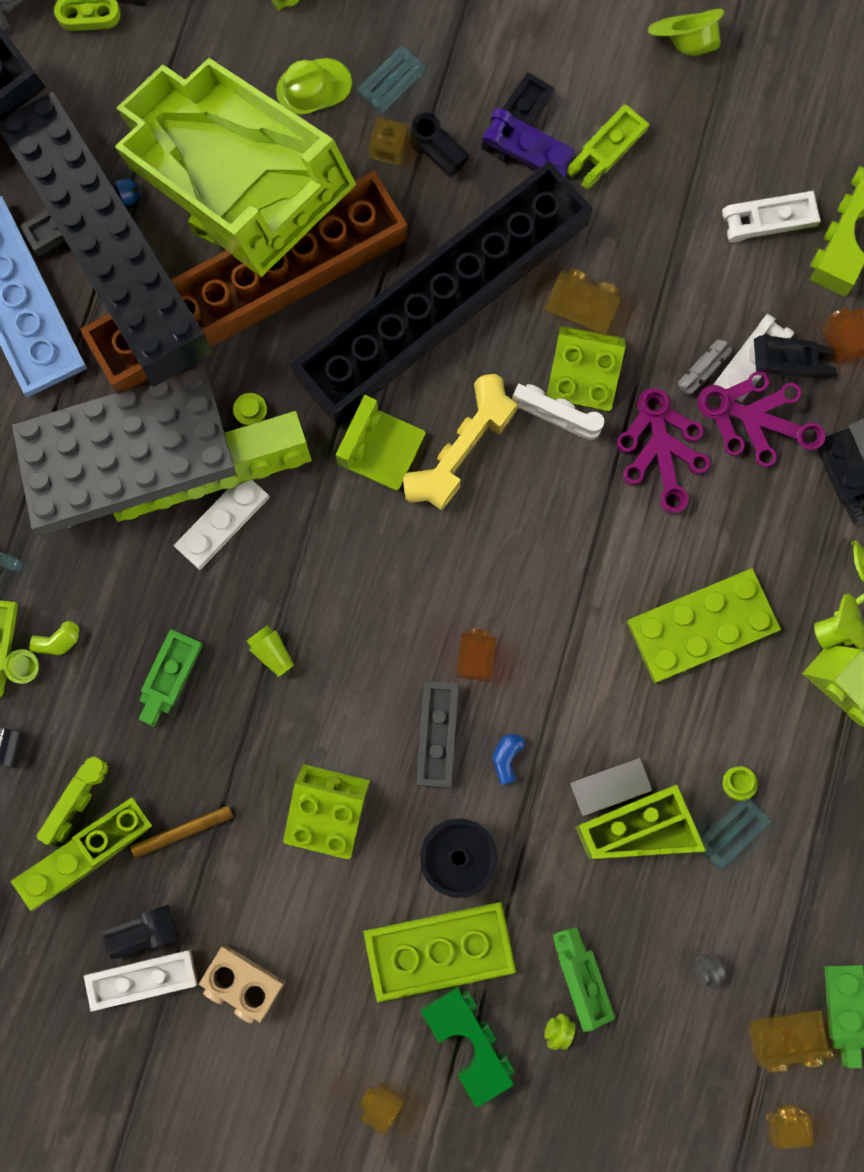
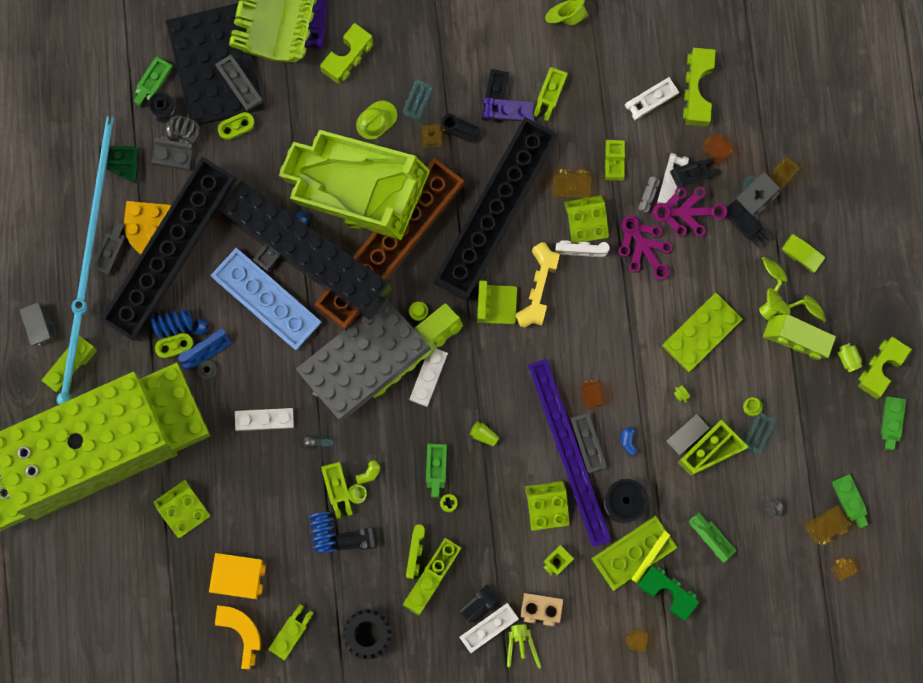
camera: 25 degrees left, 0 degrees up
(157, 749) = (452, 498): none -> lime bush
(181, 831) = (476, 546): pearl gold bar -> none
(188, 1011) = (519, 633): none -> lime plant
(313, 902) = (561, 554): none -> lime brick
(398, 741) = (569, 453): none -> dark purple plate
(462, 971) = (650, 557): none -> neon yellow bar
(559, 1032) = (711, 568): lime plate -> none
(627, 714) = (681, 394): none -> lime plate
(670, 291) = (614, 160): none -> lime slope

